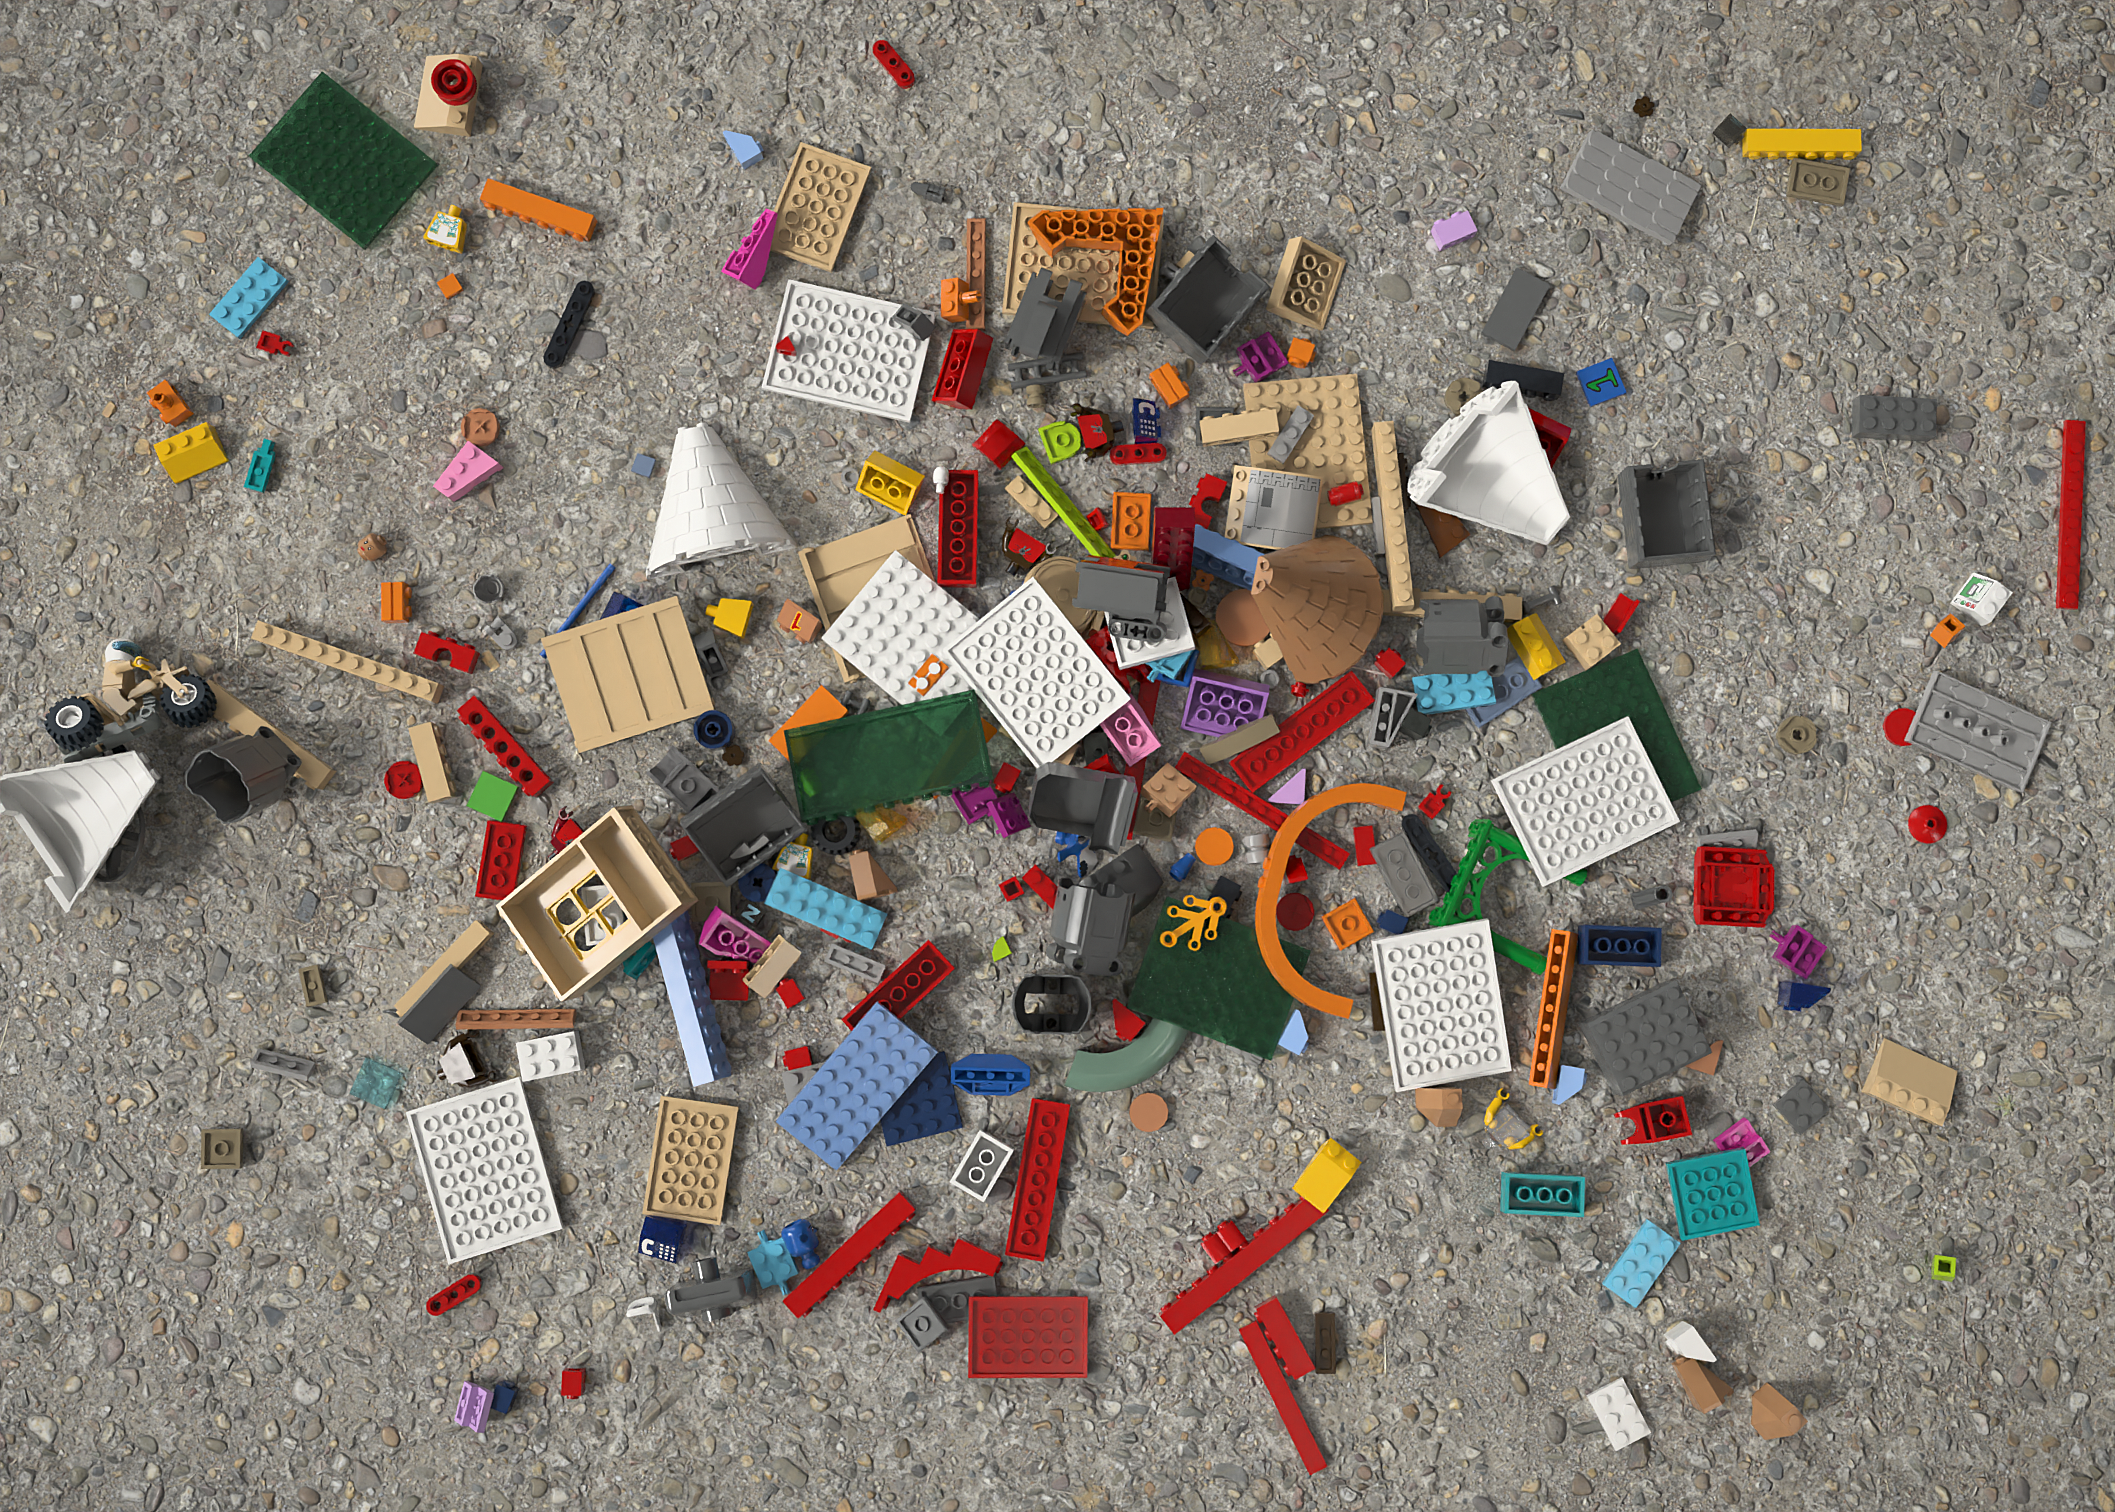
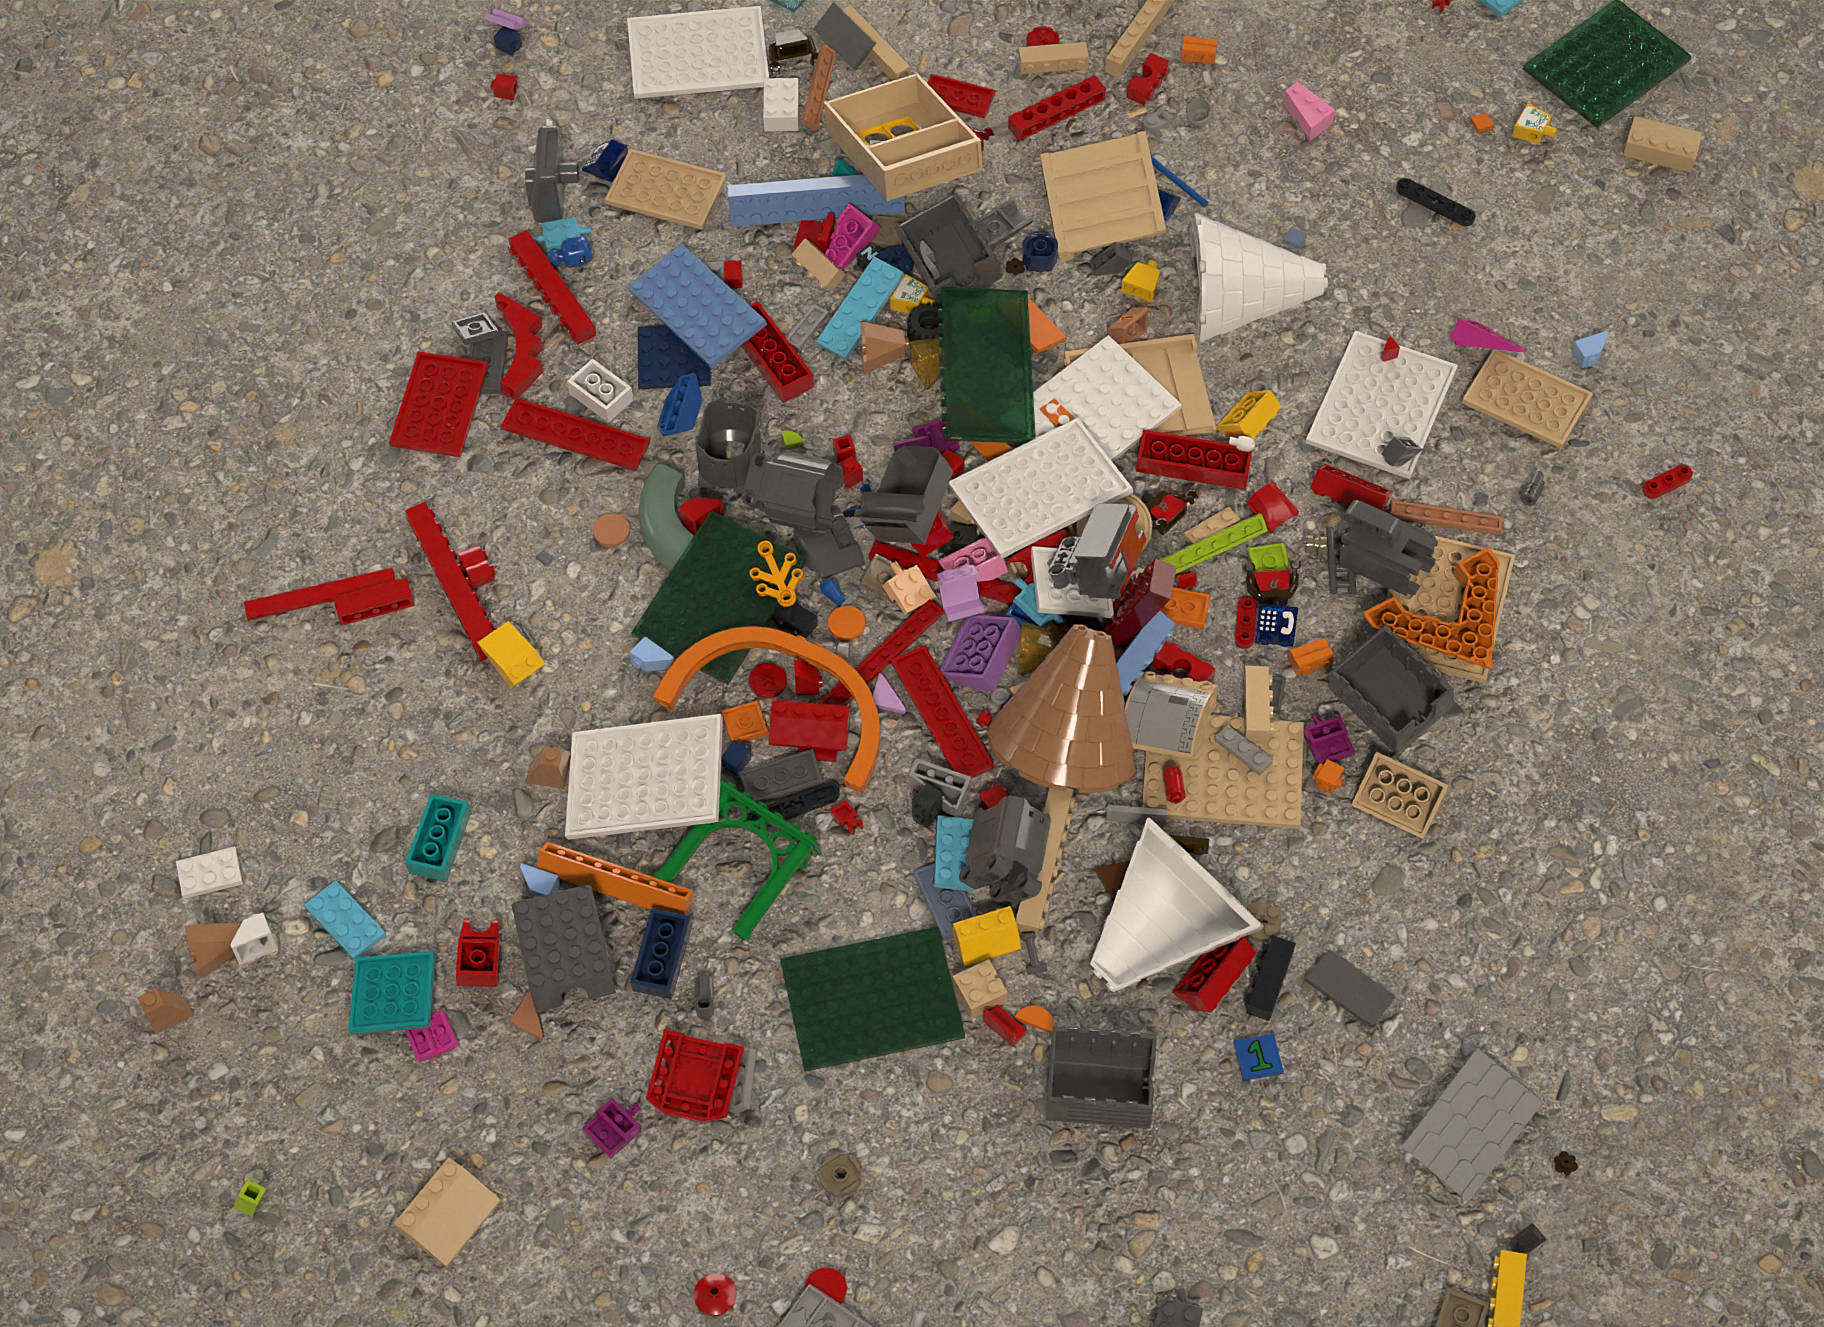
camera: 100 degrees right, 25 degrees down
(372, 547) = (1250, 39): medium nougat head -> none
(445, 1296) = (601, 20): red plate -> none
(452, 70) = (1668, 132): red wheel -> none
(480, 427) = (1348, 128): nougat tile -> none
(492, 796) = (1015, 96): bright green tile -> none
(538, 210) = (1546, 190): orange brick -> none
(790, 992) = (791, 276): red brick -> none
(956, 299) = (1420, 490): orange brick -> none
(1170, 735) = (959, 592): none -> lavender panel
(1240, 739) = (944, 655): dark tan slope -> none
(1325, 1343) = (358, 634): dark brown plate -> none
(1350, 856) = (809, 725): none -> red slope
(1392, 517) = (1131, 820): tan brick -> none
(1453, 230) = (1442, 941): lavender brick -> none
(1506, 1126) = (511, 818): clear torso -> none
(1585, 801) = (815, 942): white plate -> none
(1604, 586) = (1036, 1017): none -> orange tile
(1796, 996) = (568, 1111): clear blue slope -> none
(1801, 1107) = (453, 1101): dark grey plate -> none

